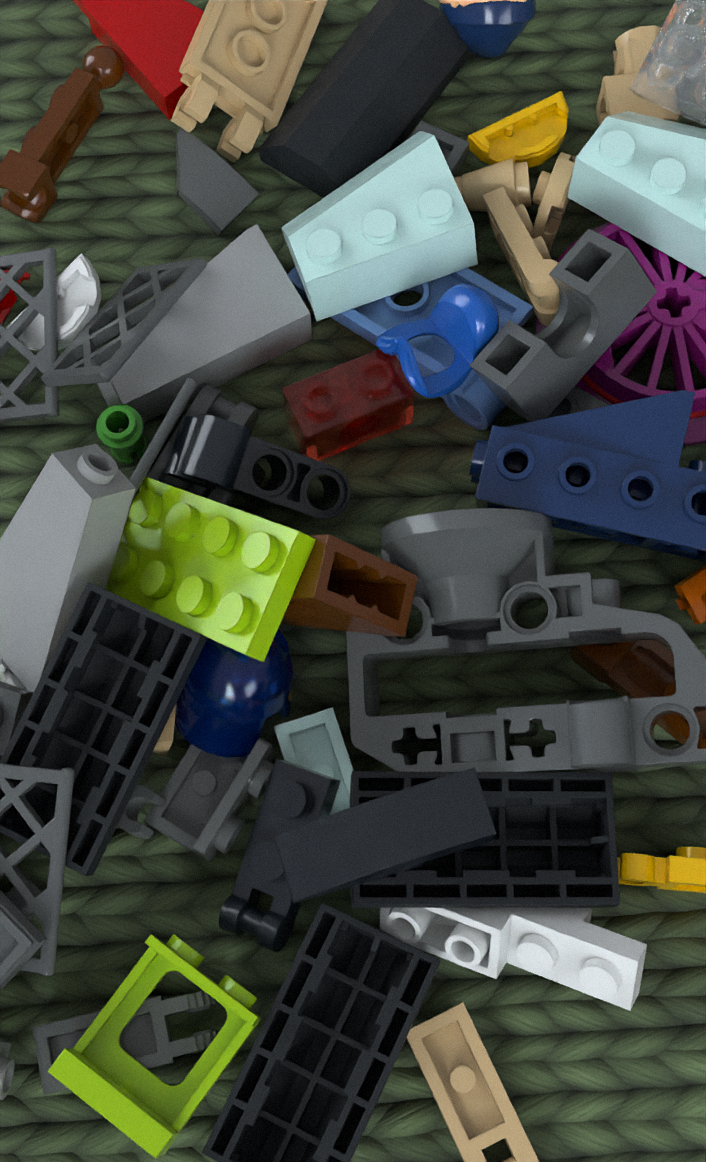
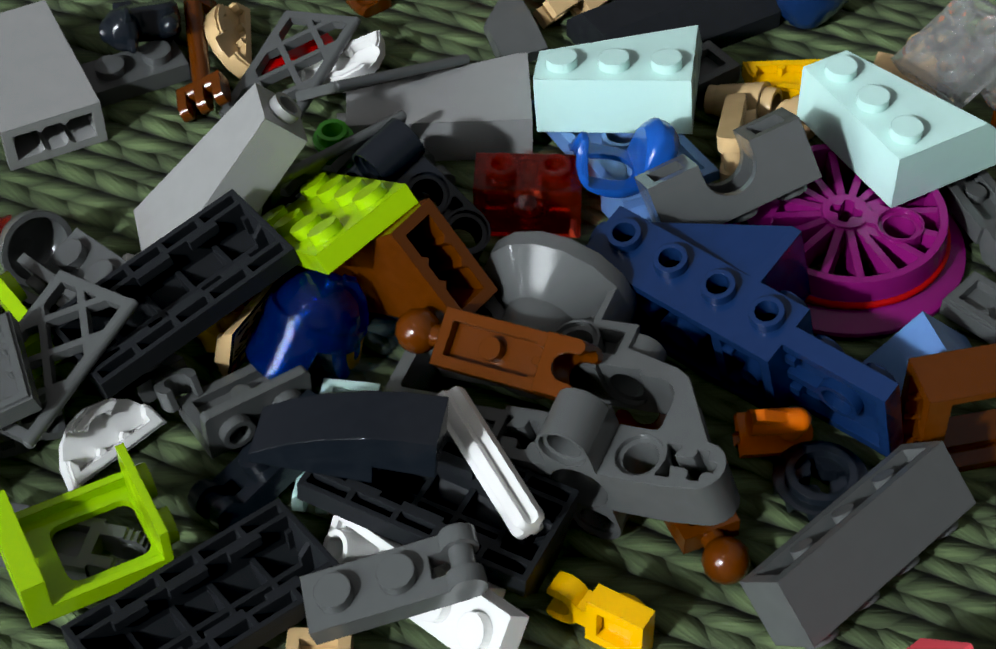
camera: 25 degrees right, 25 degrees down
(93, 901) = (94, 433): none -> white plate
(469, 660) = (496, 349): none -> reddish brown plate
(503, 972) = (393, 584): none -> dark grey plate
(523, 792) = (492, 465): none -> white axle

